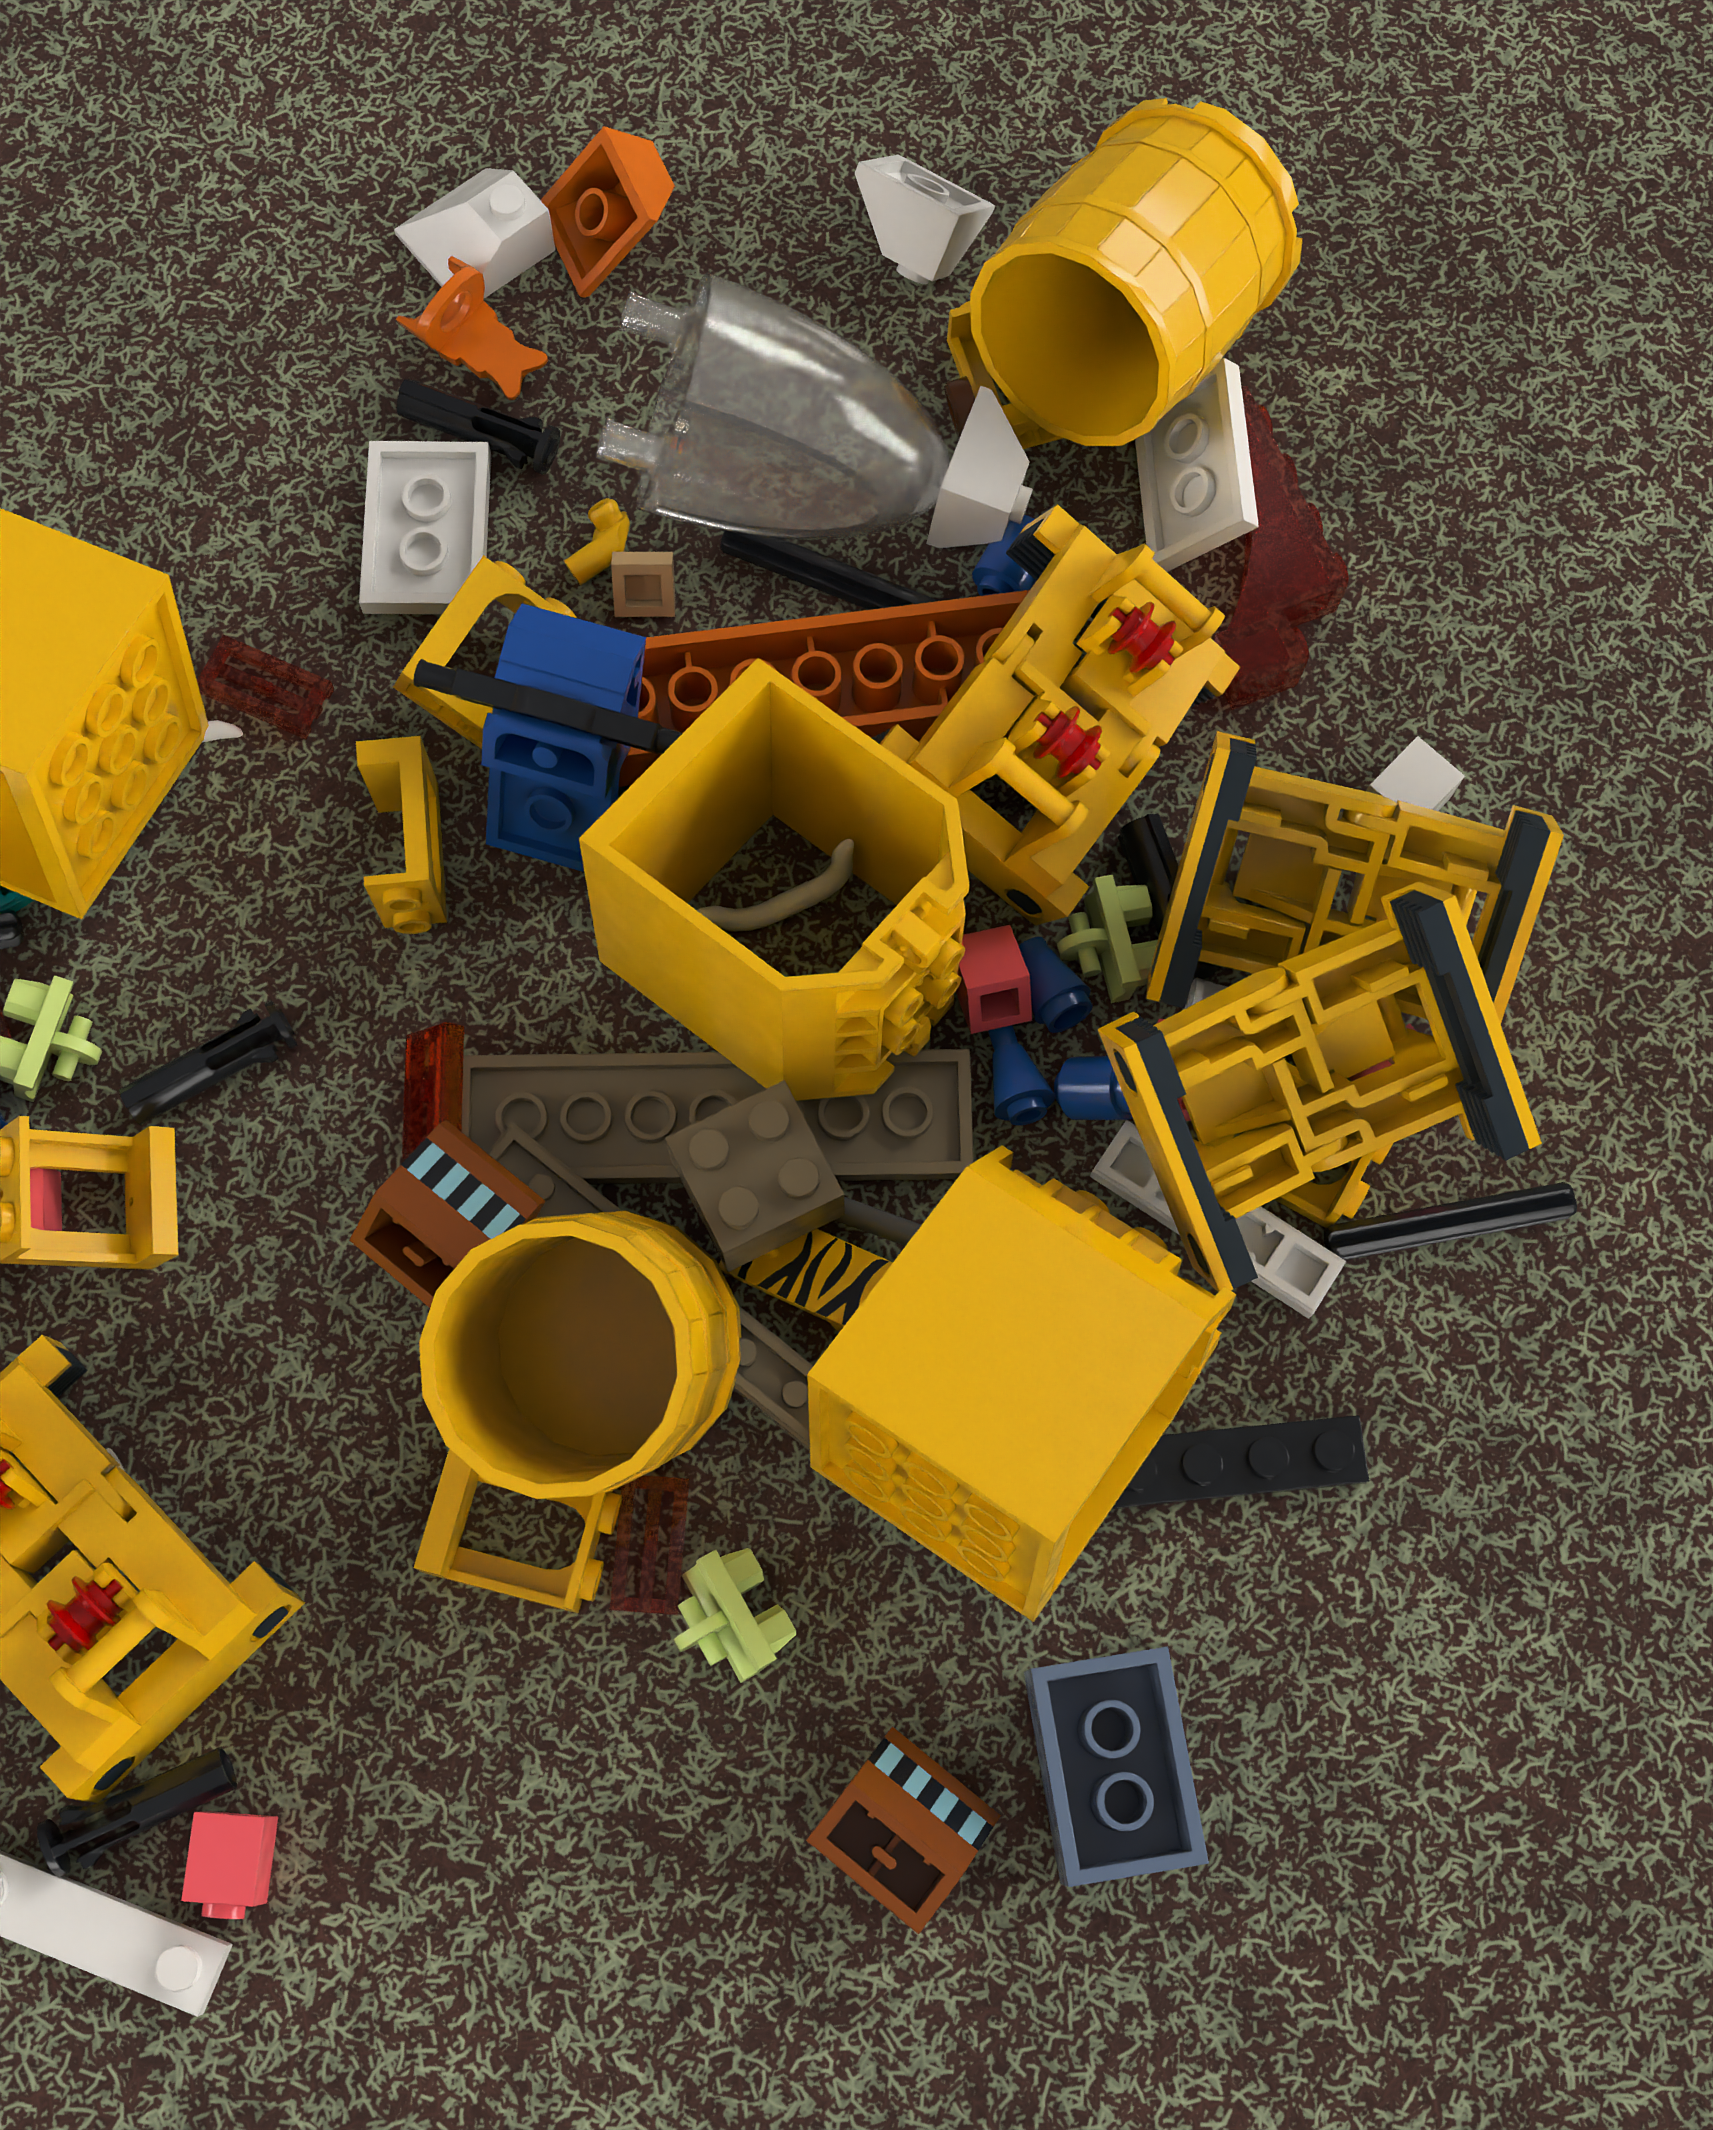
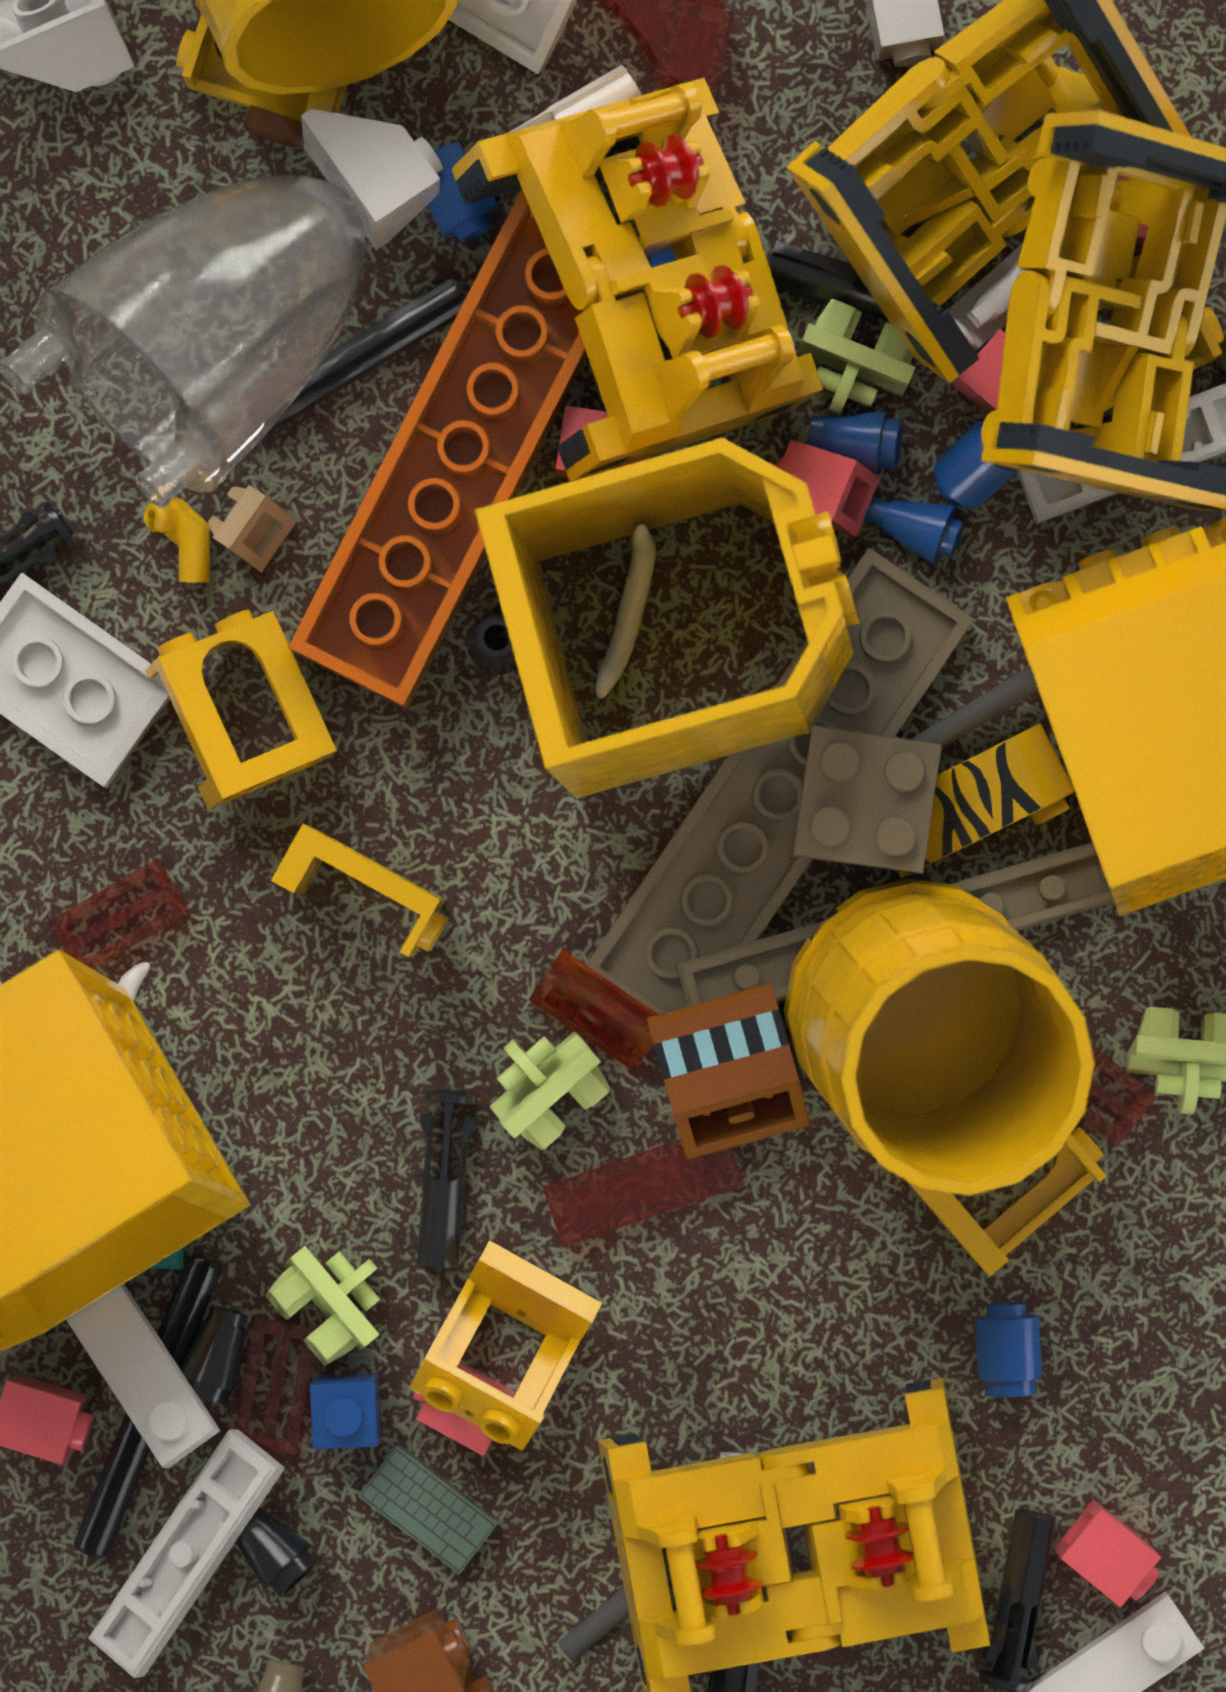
camera: 55 degrees left, 15 degrees up
(302, 1228) = (637, 1189): none -> clear red tile
(311, 1090) = (540, 1080): none -> yellowish green hips
(362, 1638) = (1008, 1350): none -> blue brick
(556, 728) = (382, 702): blue piece -> none

